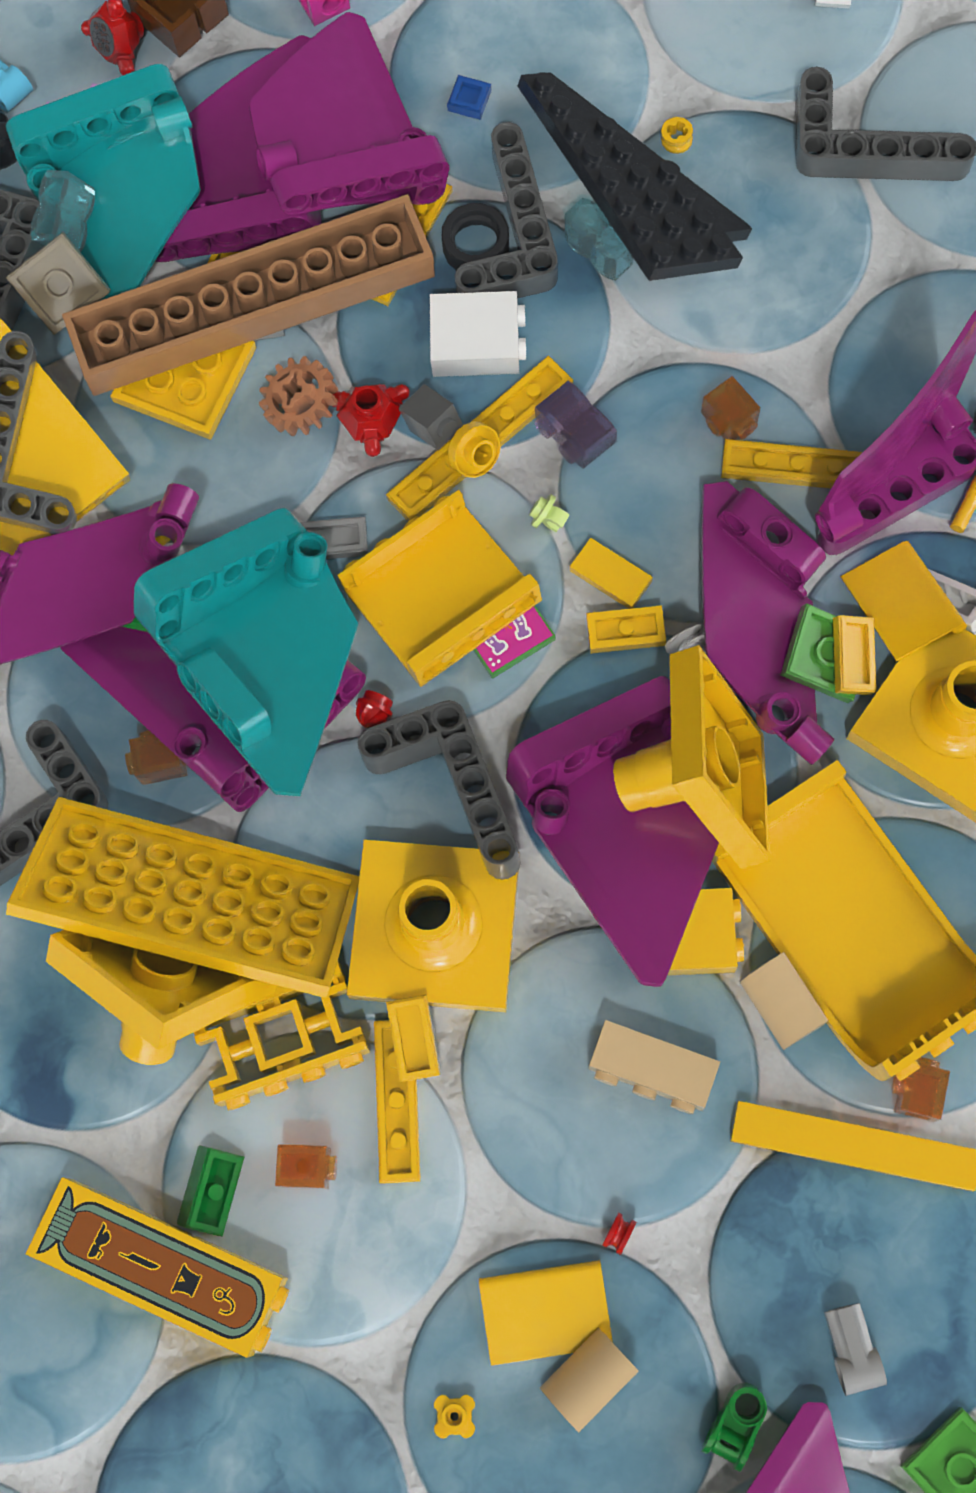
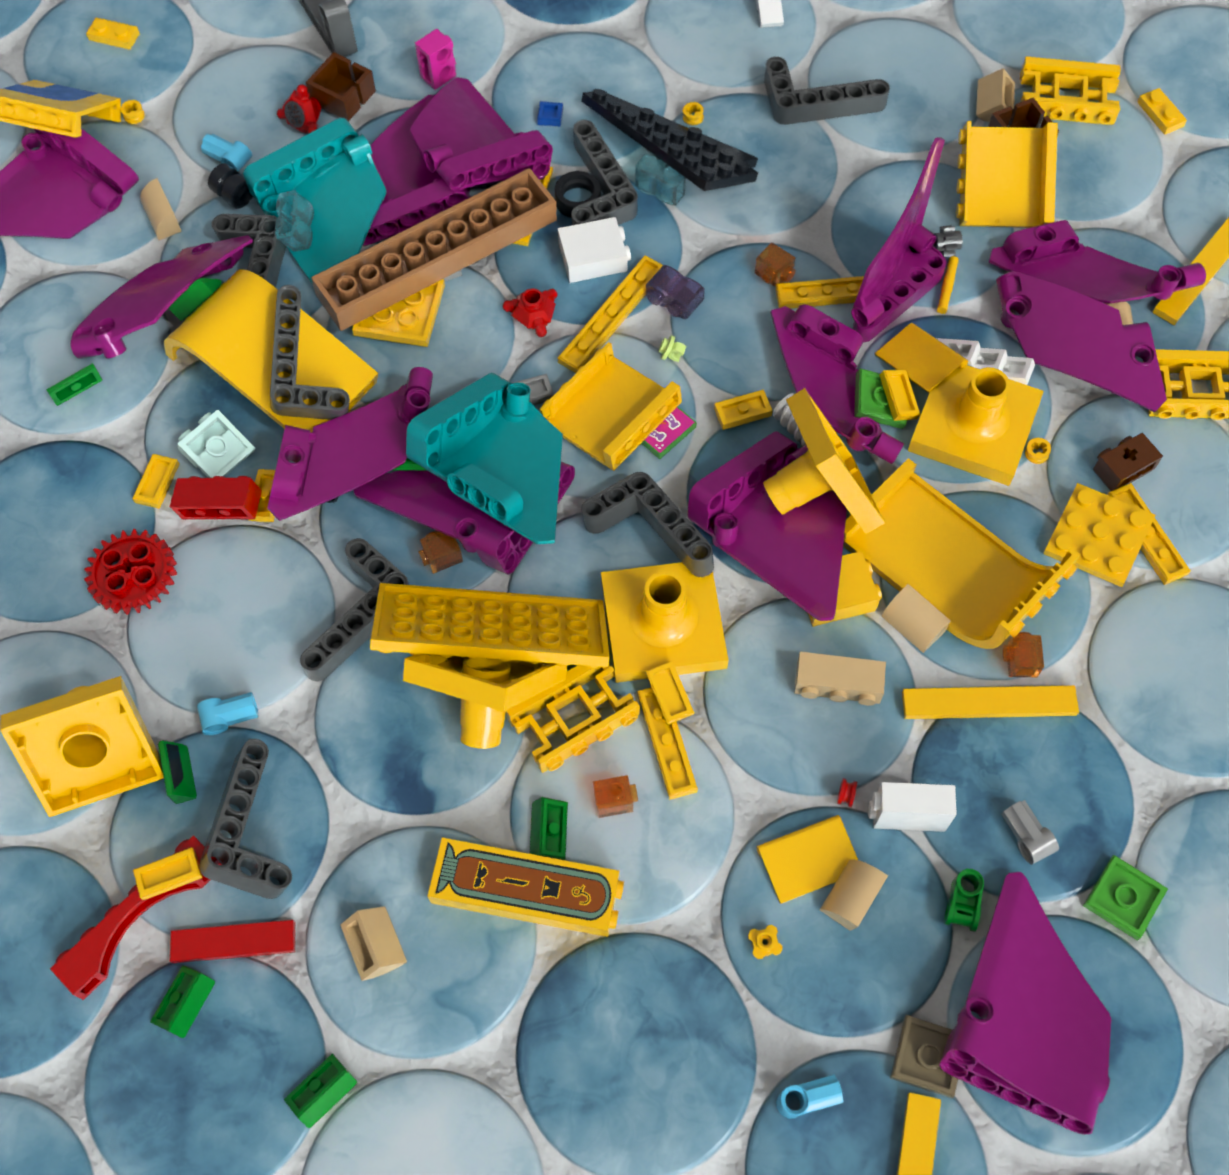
camera: 20 degrees left, 10 degrees down
(57, 281) = (299, 261): dark tan tile -> none
(299, 397) = (483, 307): nougat gear -> none
(373, 709) = (584, 489): red plate -> none
(431, 417) = (577, 303): dark grey brick -> none
(474, 449) = (612, 315): yellow plate -> none
(611, 573) = (722, 378): yellow tile -> none
(699, 1281) = (913, 806): none -> white brick

